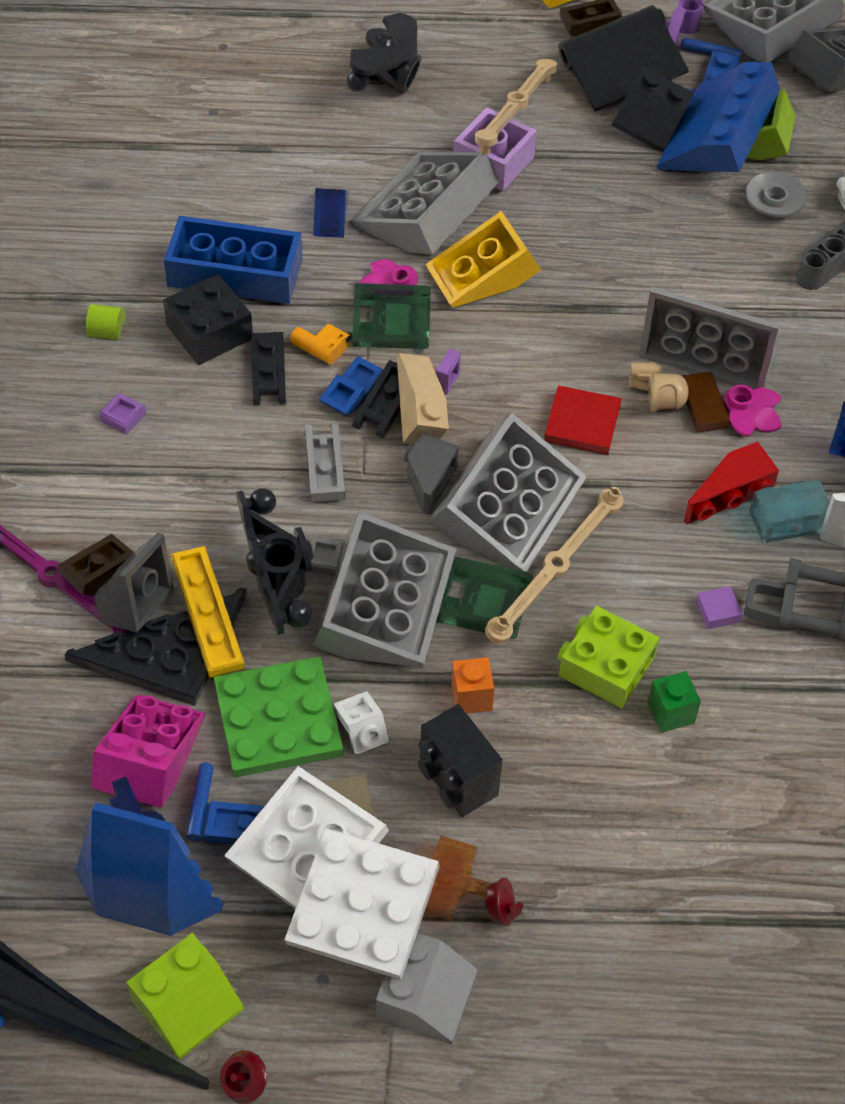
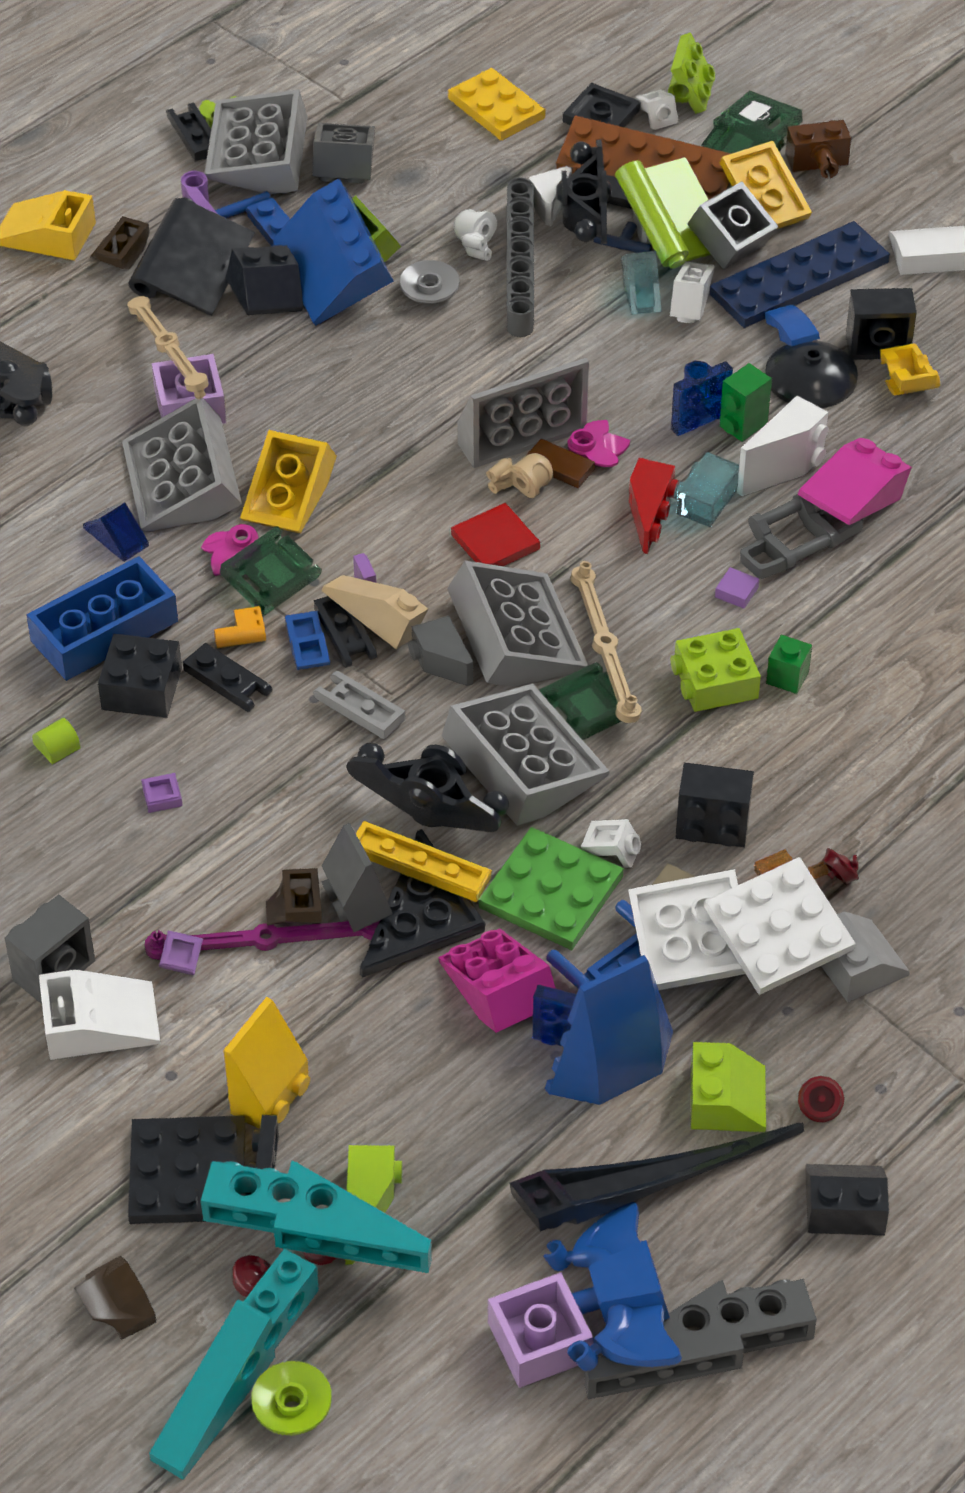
camera: 45 degrees left, 5 degrees down
(473, 684) = (655, 759): orange brick -> none

